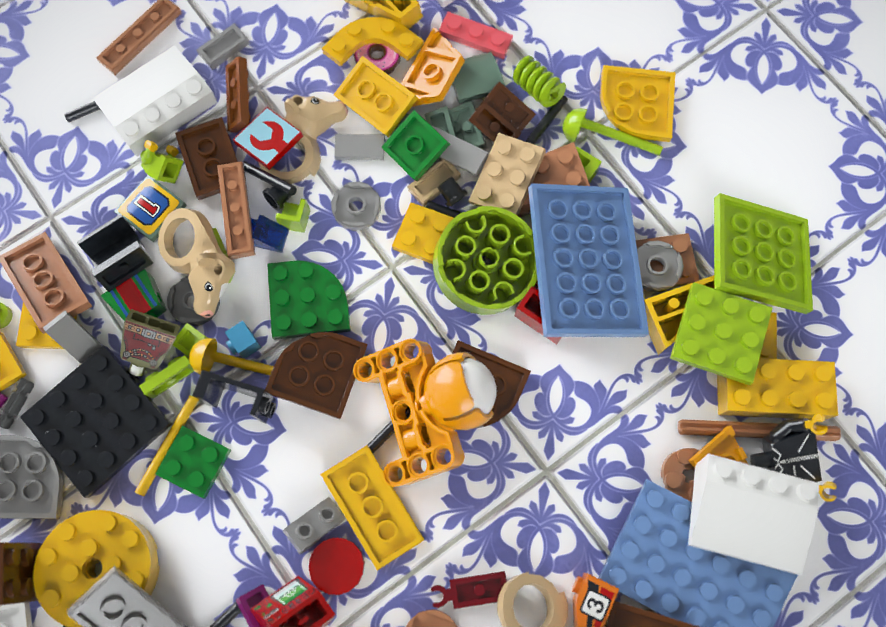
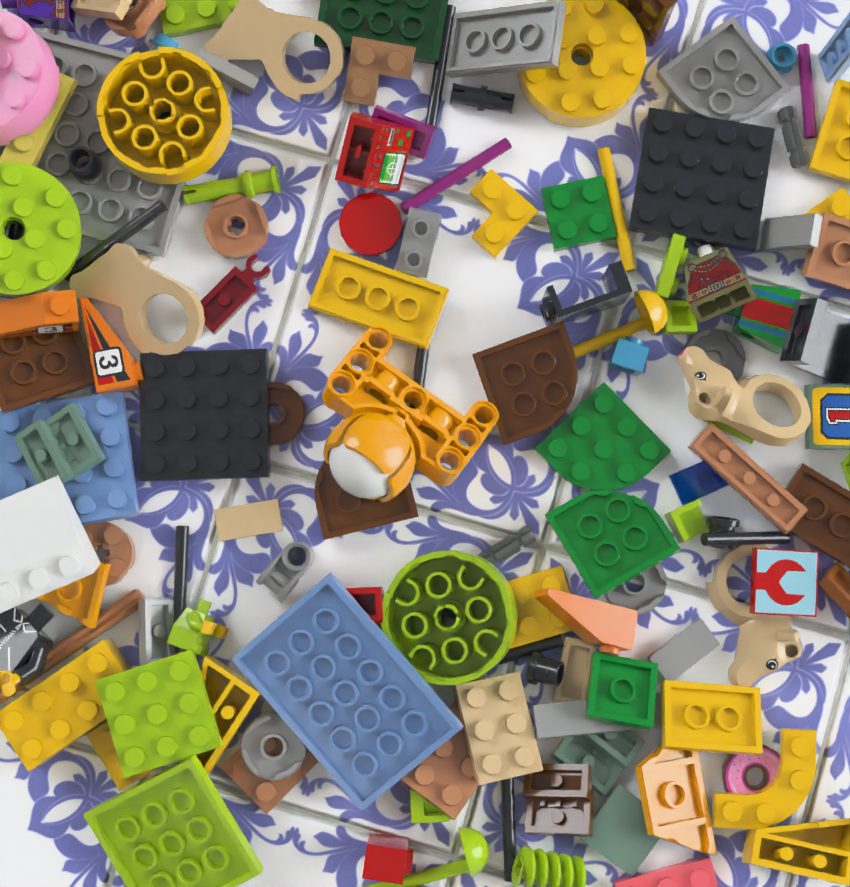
camera: 145 degrees right, 10 degrees up
(186, 597) = (482, 98): none -> black pin
(236, 500) = (508, 212): none -> yellow plate
(251, 555) = (456, 175): none -> magenta piece
(348, 237) = (611, 537): none -> green plate
(399, 195) = (592, 620): none -> slope
(415, 281) = (509, 545): none -> dark grey axle
(514, 471) = (293, 413): none -> reddish brown tile
(552, 517) = (205, 415): none -> black plate
(571, 423) = (248, 520): none -> tan tile
(574, 370) = (286, 571): none -> light grey piece
(631, 152) = (387, 858): none -> red brick
(642, 421) = (181, 570): none -> black piece
(658, 375) = (195, 628): none -> lime piece
(672, 568) = (59, 446): none -> sand green slope
(686, 393) = (155, 625): none -> light grey hinge

